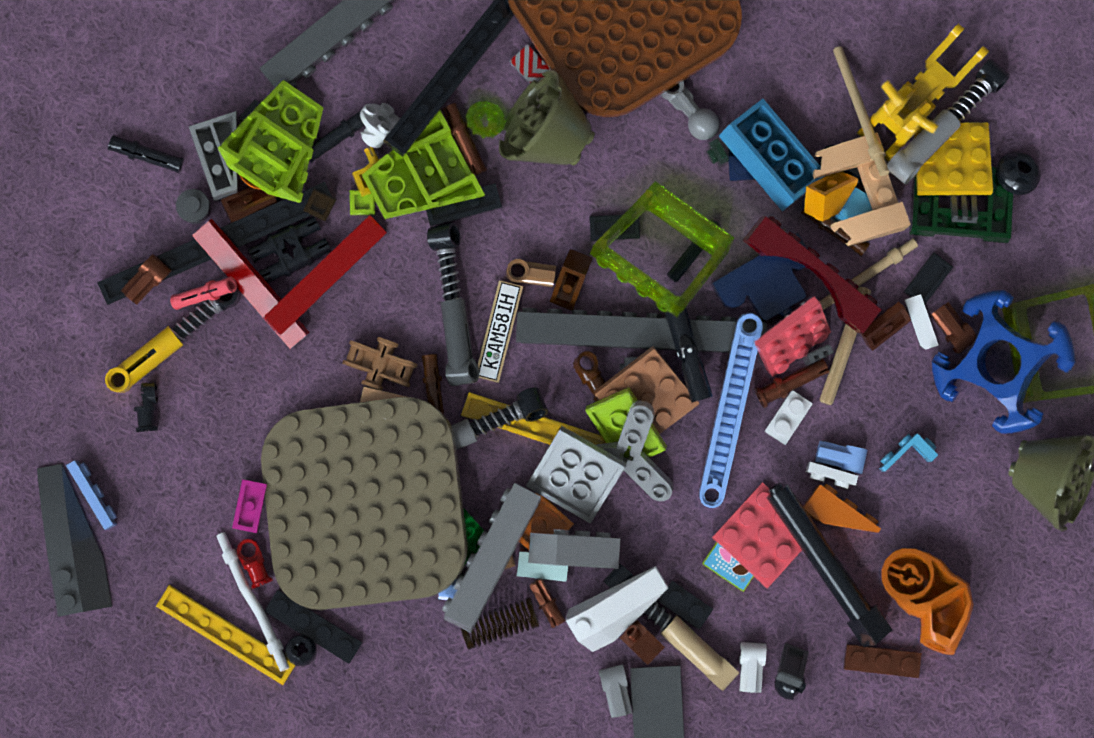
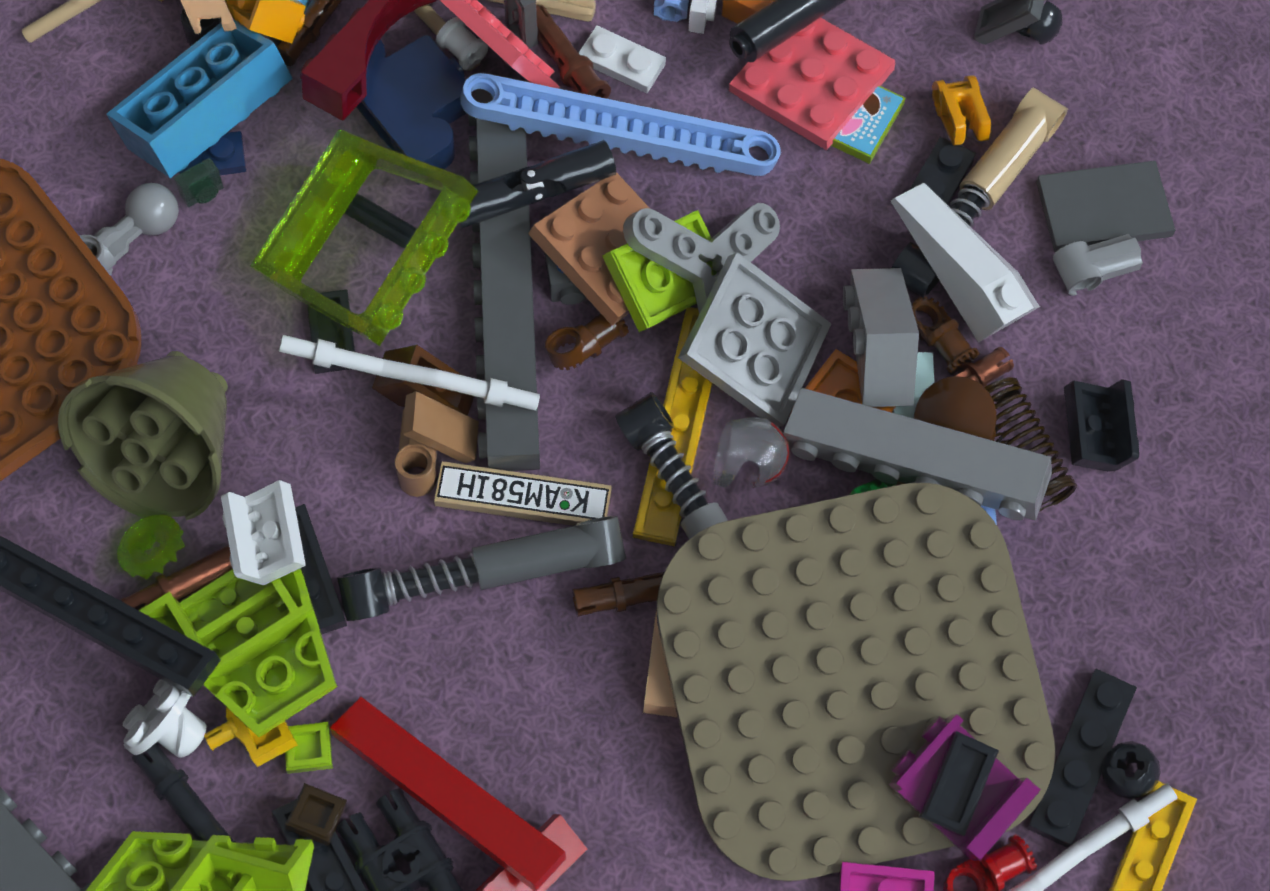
camera: 95 degrees left, 20 degrees down
(295, 553) = (998, 806): none -> magenta panel
(297, 551) = (959, 783): none -> black tile
(388, 366) = (599, 685): medium nougat axle -> none
(472, 182) = (263, 533): none -> white bracket
(508, 672) = (1101, 425): none -> black bracket
(511, 463) = (754, 441): none -> clear helmet
(517, 585) = (960, 406): none -> reddish brown dish
(529, 64) = (53, 485): tile -> none
(539, 286) = (440, 427): none -> medium nougat tile
(575, 588) = (944, 335): none -> reddish brown connector
(578, 222) = (493, 391): none -> white bar
(642, 642) = (1013, 225): copper brick -> none
(738, 624) = (959, 102): none -> light orange piece
(752, 662) = (1009, 76): white piece -> none

